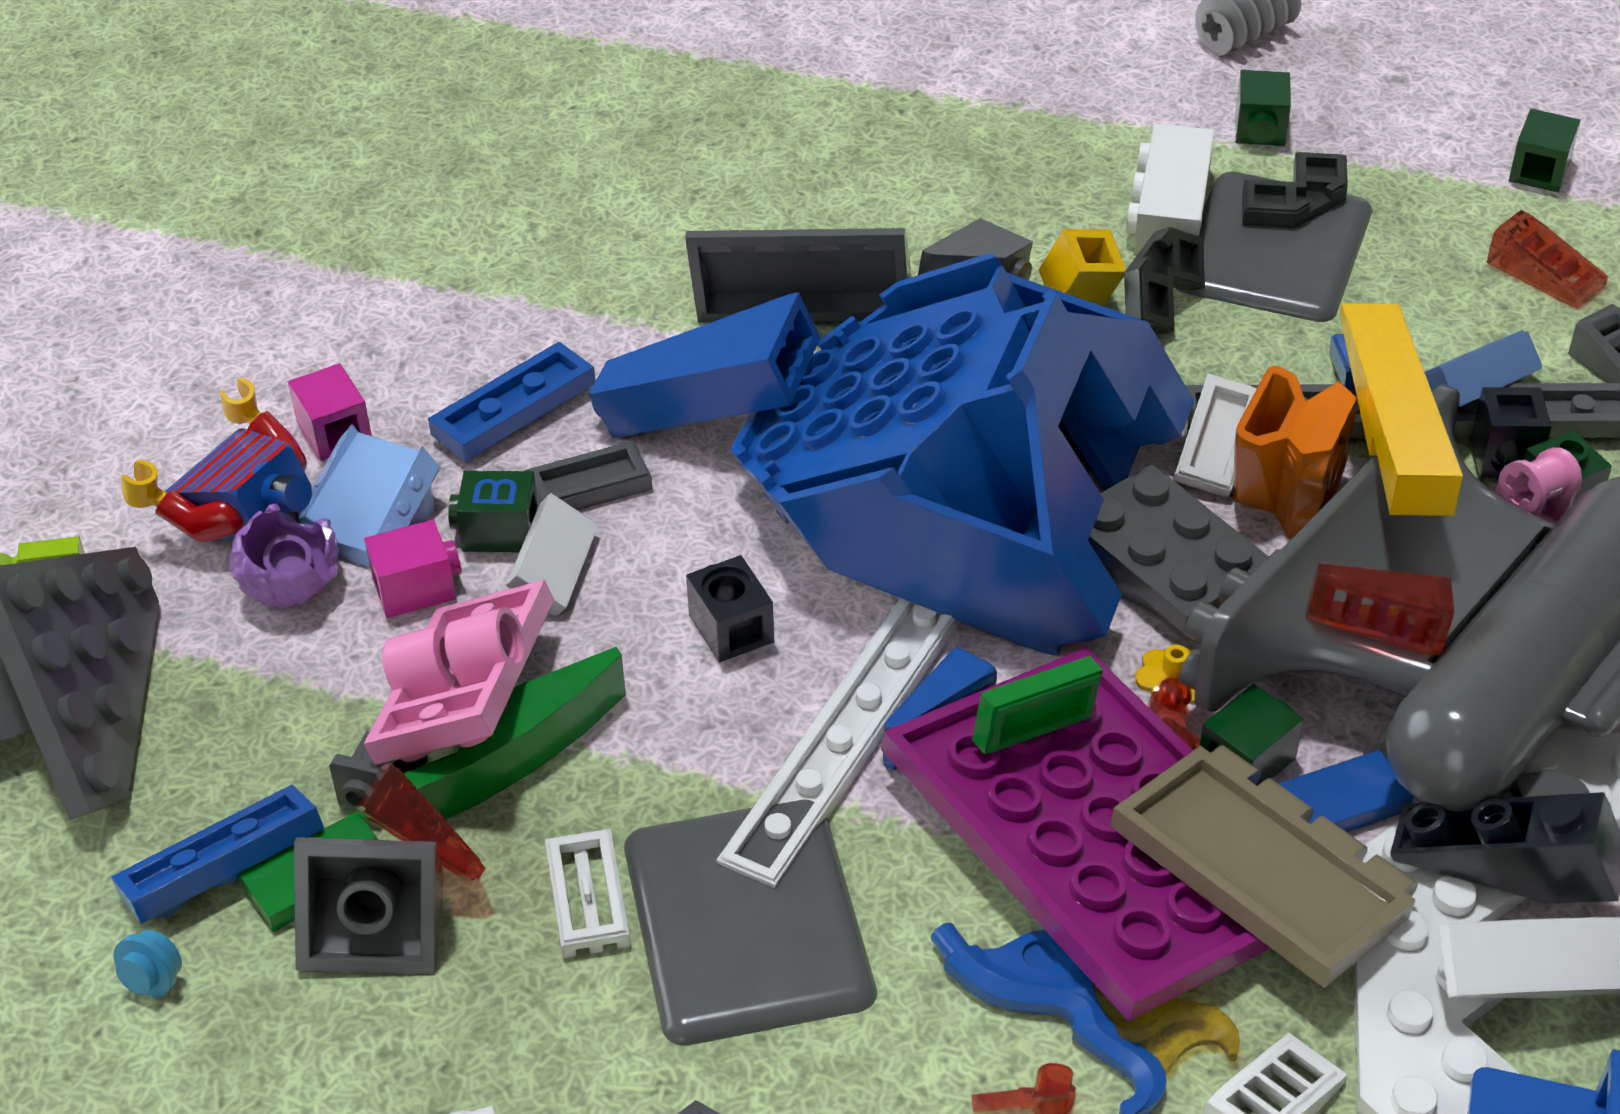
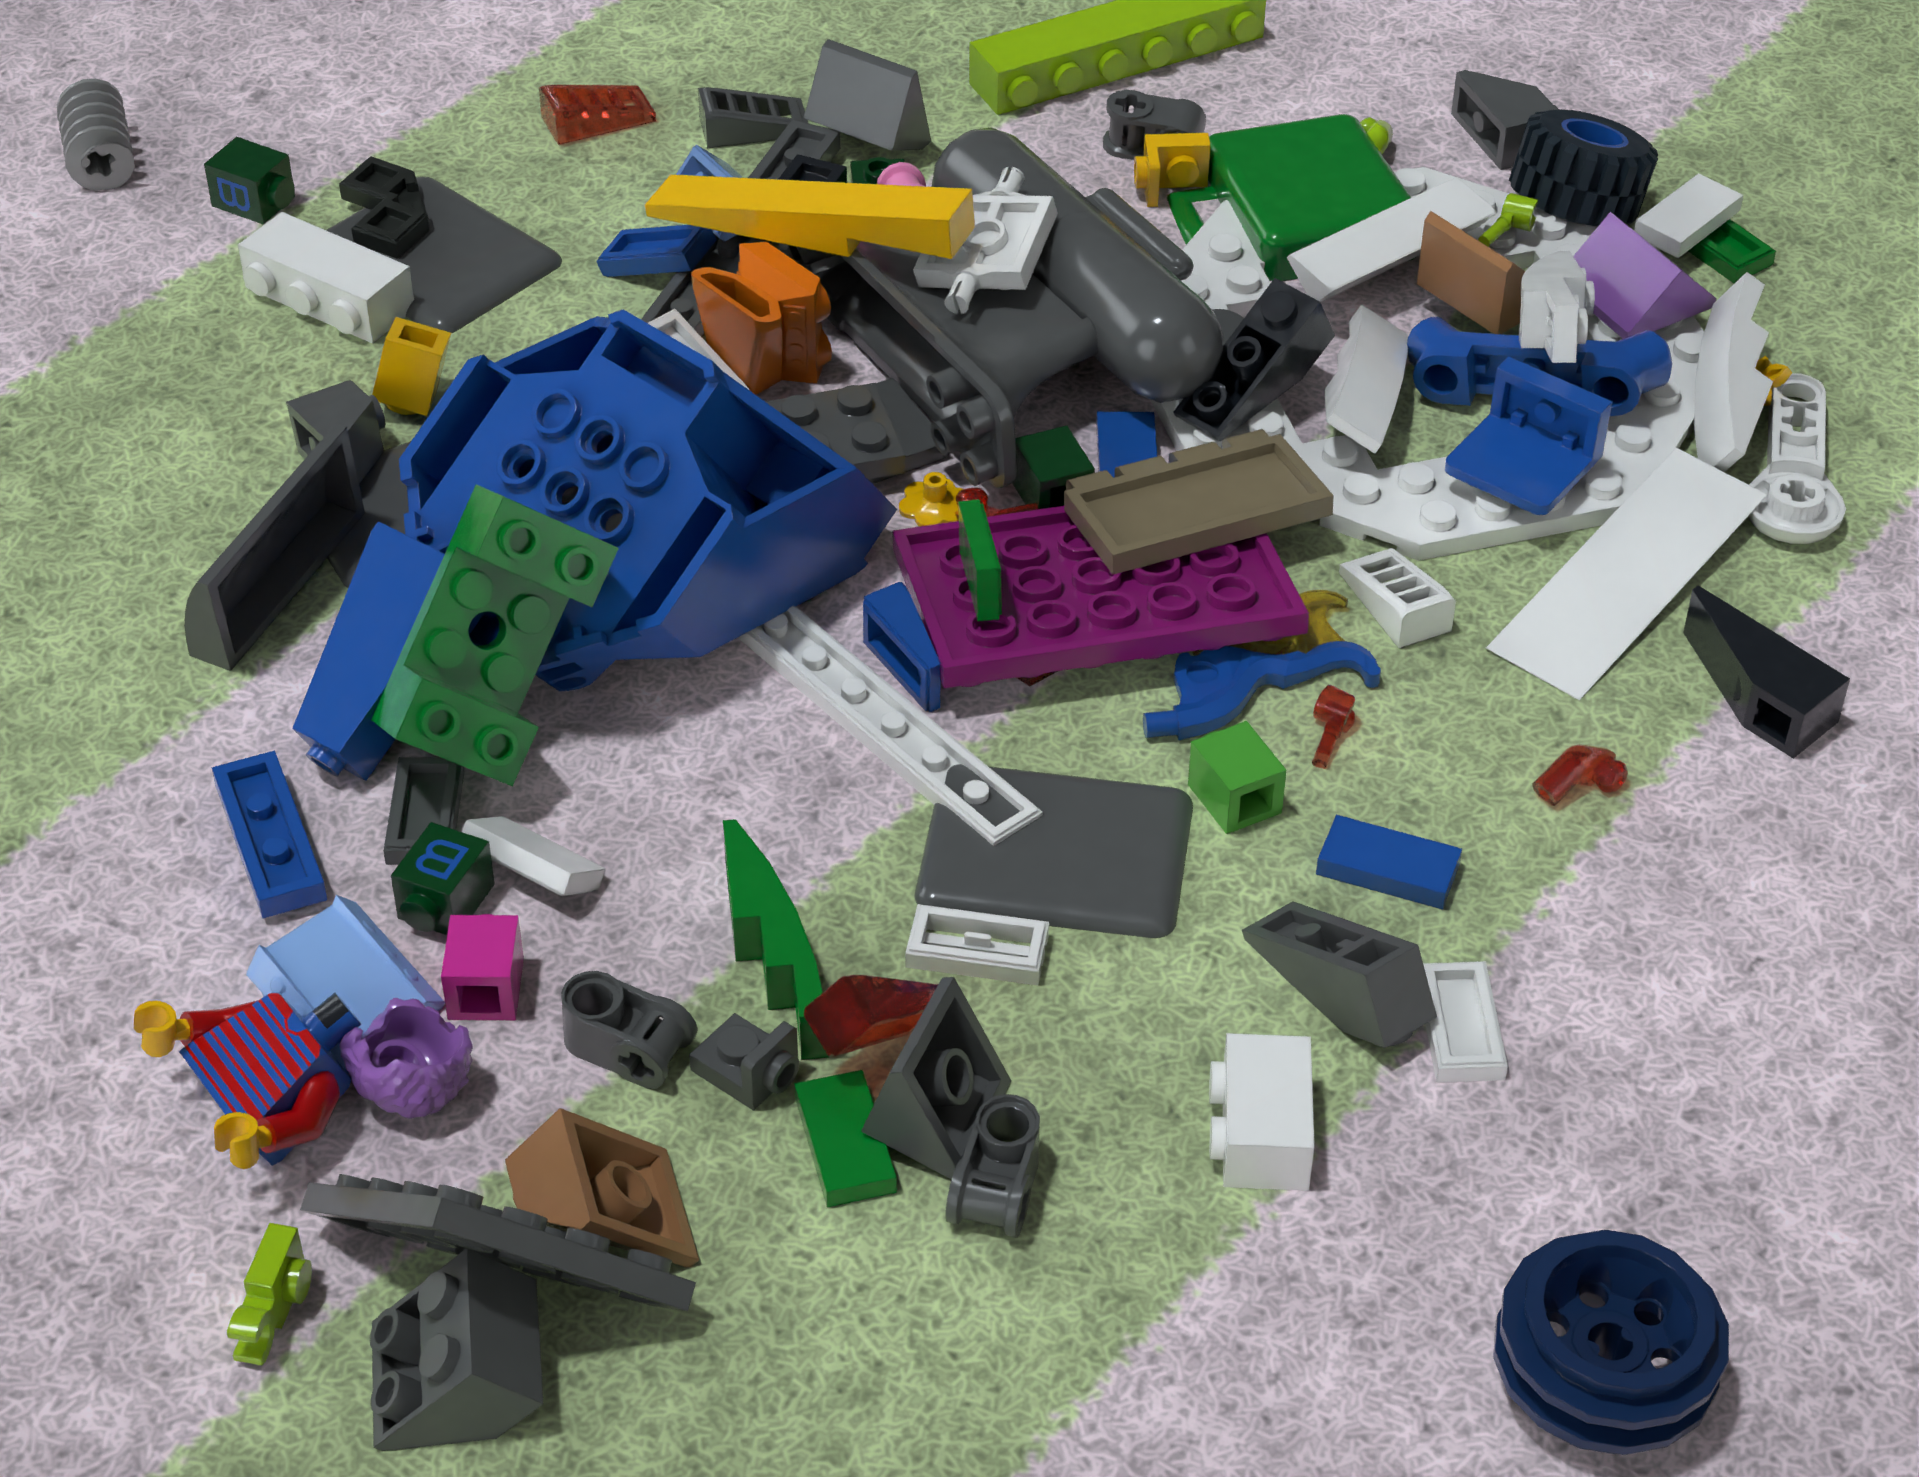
camera: 70 degrees left, 0 degrees up
(147, 963) = (908, 1282): dark azure plate -> none
(181, 731) = (602, 1184): none -> medium nougat slope
(216, 854) = (794, 1202): blue plate -> none
(297, 987) = (997, 1176): none -> dark grey piece
(327, 406) = (178, 971): dark pink brick -> none
(361, 683) = (622, 1027): none -> dark grey piece
(456, 673) = (693, 934): bright pink plate -> none
(661, 428) = (466, 696): none -> green plate
(730, 608) = (693, 744): black brick -> none
(889, 1024) = (1236, 777): none -> bright green brick
(1164, 263) = (458, 321): pearl dark grey tile -> none
(1416, 624) = (1036, 305): clear red slope -> none
(1483, 544) = (1000, 248): none -> white plate
(1544, 150) = (457, 47): dark green brick -> none

